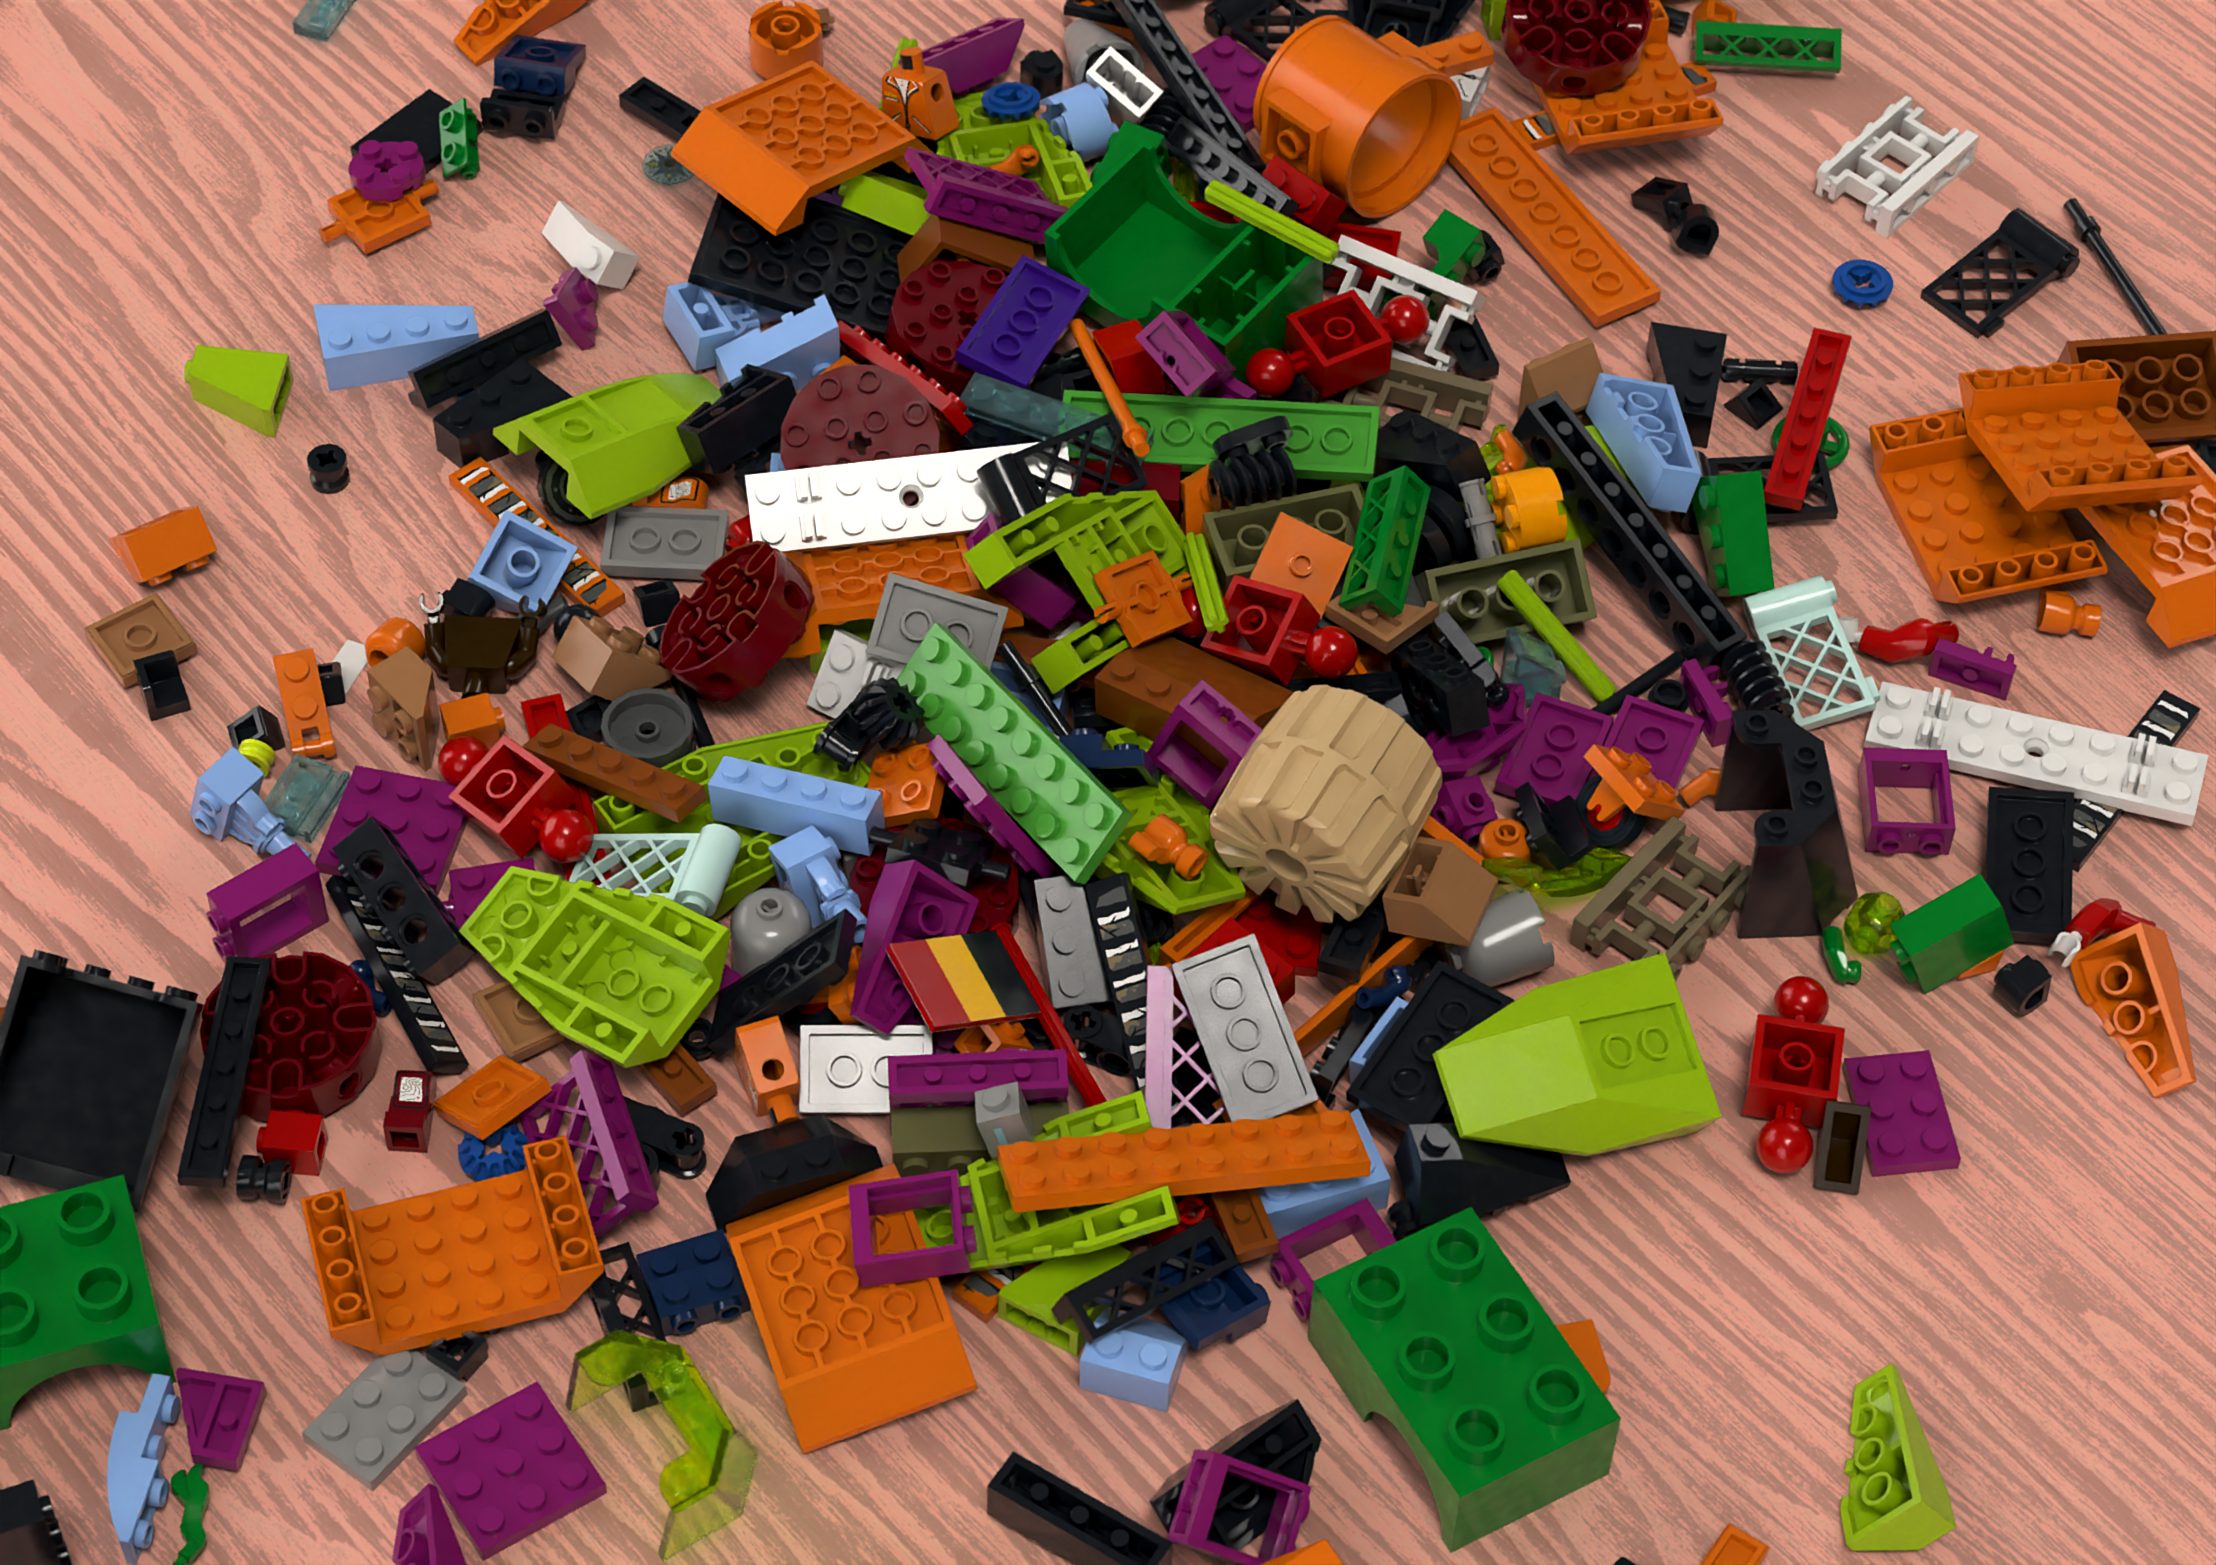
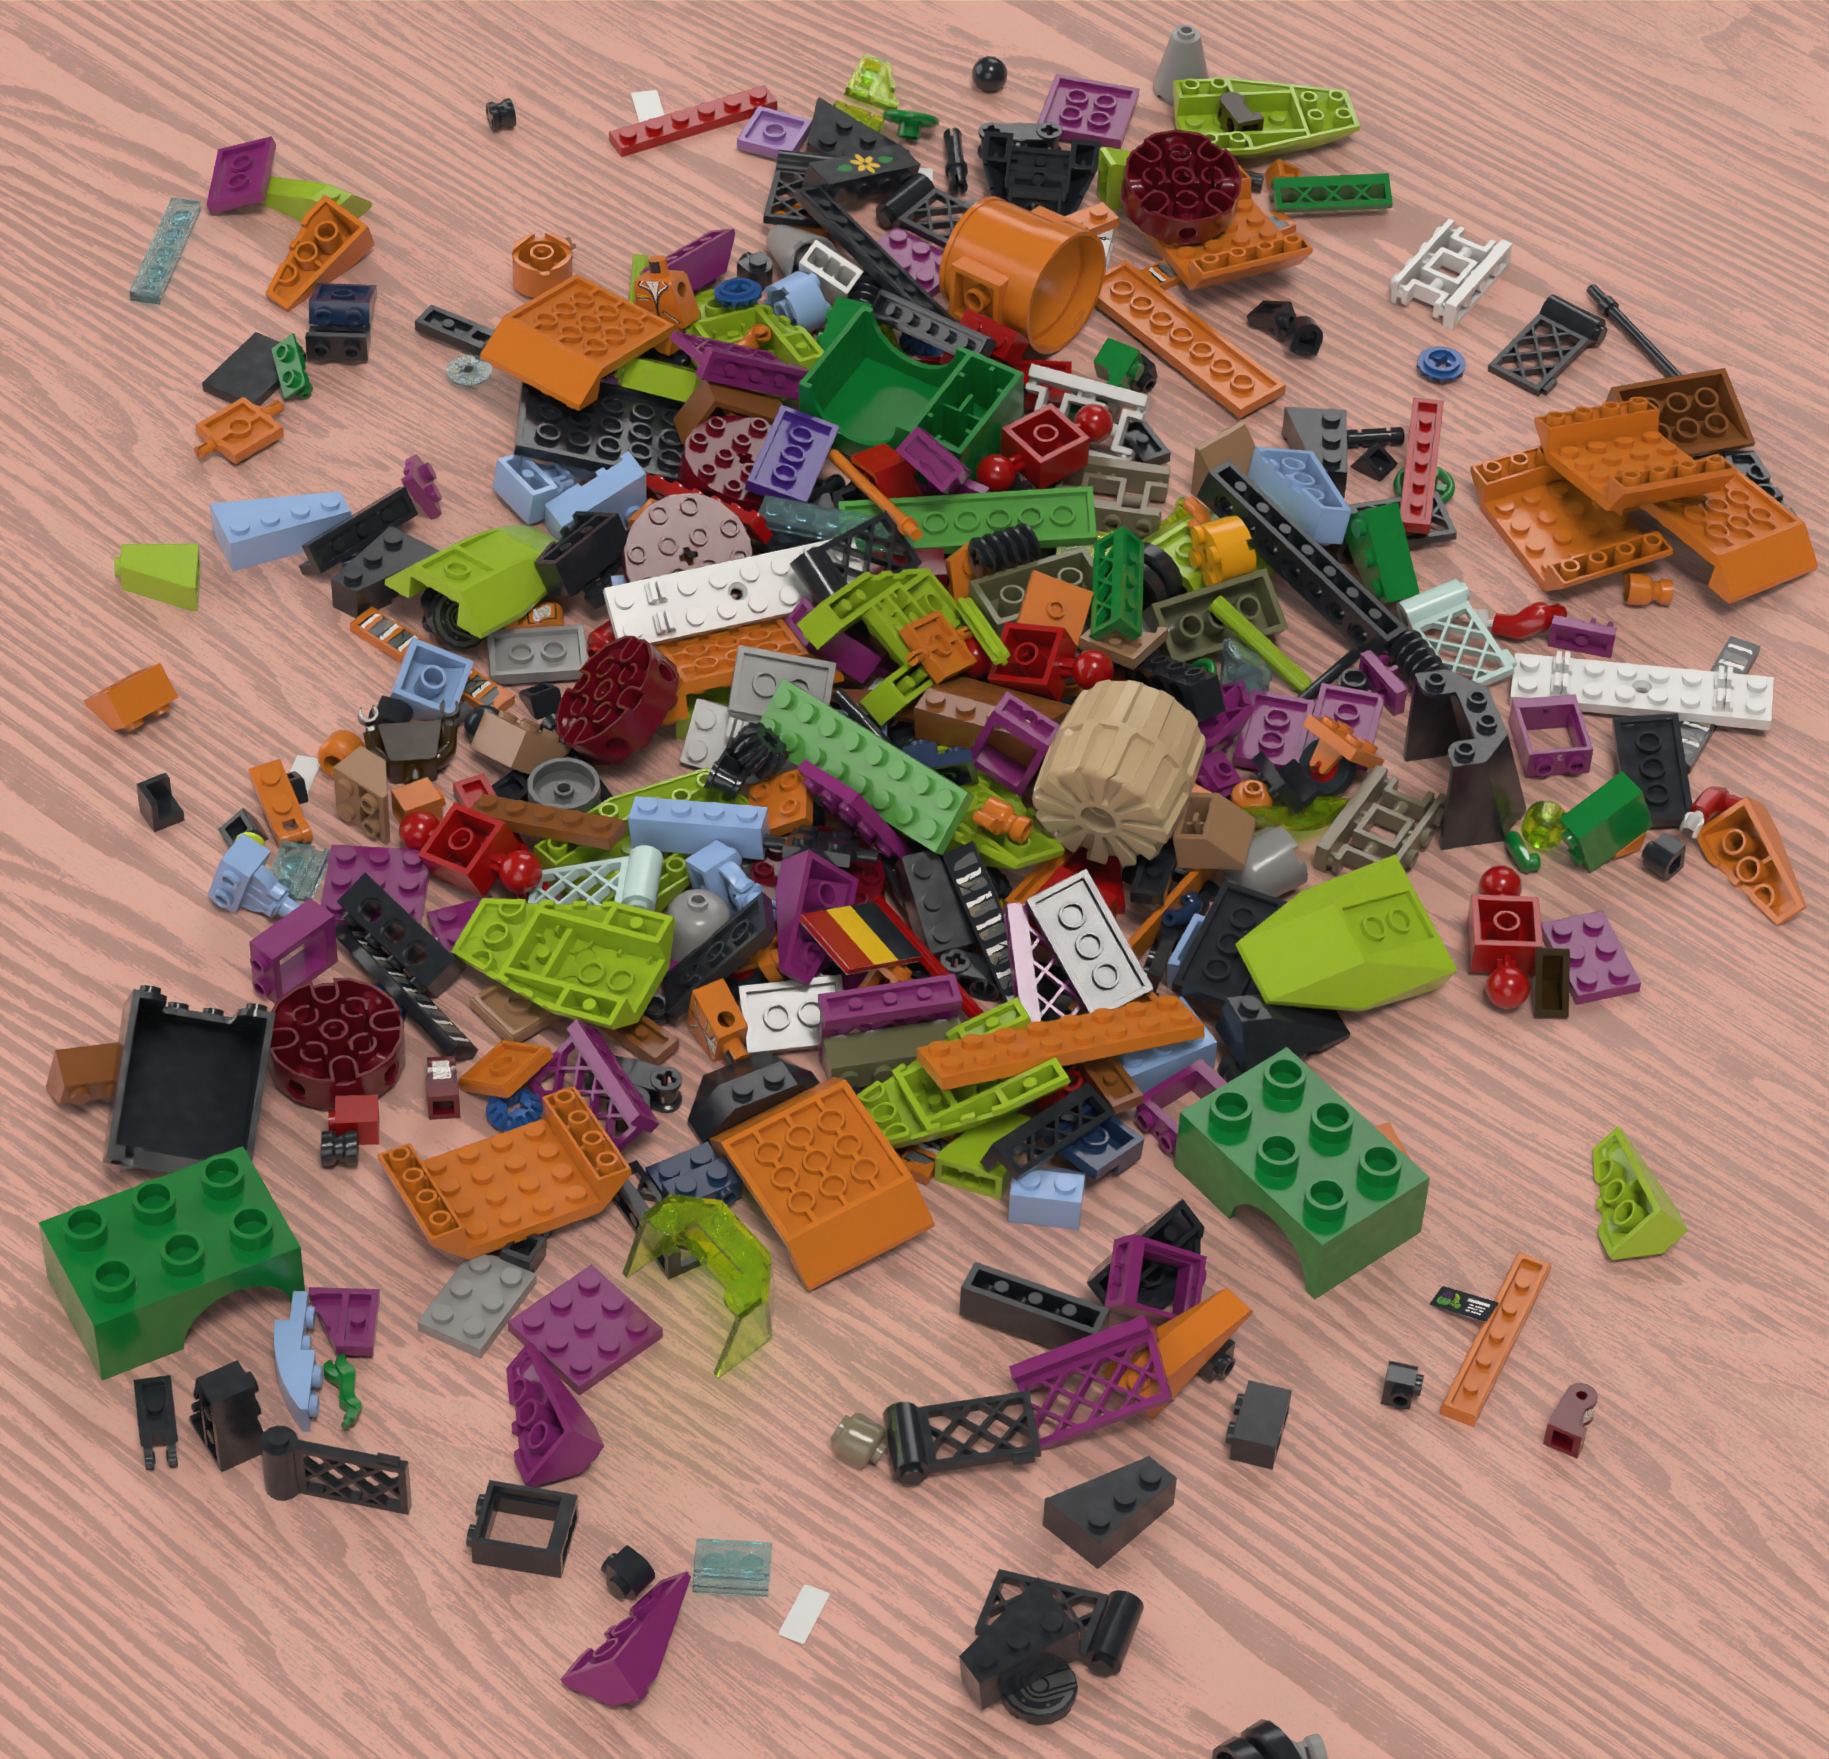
camera: 10 degrees left, 5 degrees down
(136, 633) = (126, 766): medium nougat plate -> none
(225, 1072) = (296, 1069): black tile -> none
(328, 469) = (250, 628): black wheel -> none
(401, 160) = (251, 387): magenta plate -> none
(589, 247) = (420, 438): white slope -> none
(905, 1195) = (858, 1088): magenta window -> none
(1003, 1116) = (914, 1027): light grey brick -> none
(1253, 438) = (999, 518): black plate -> none
(1272, 221) = (980, 356): lime axle -> none
(1430, 451) = (1144, 516): black wedge -> none
(1456, 641) = (1185, 651): black hinge -> none
(1480, 518) = (1185, 561): light grey pin -> none
(1701, 786) = (1392, 742): orange arm -> none

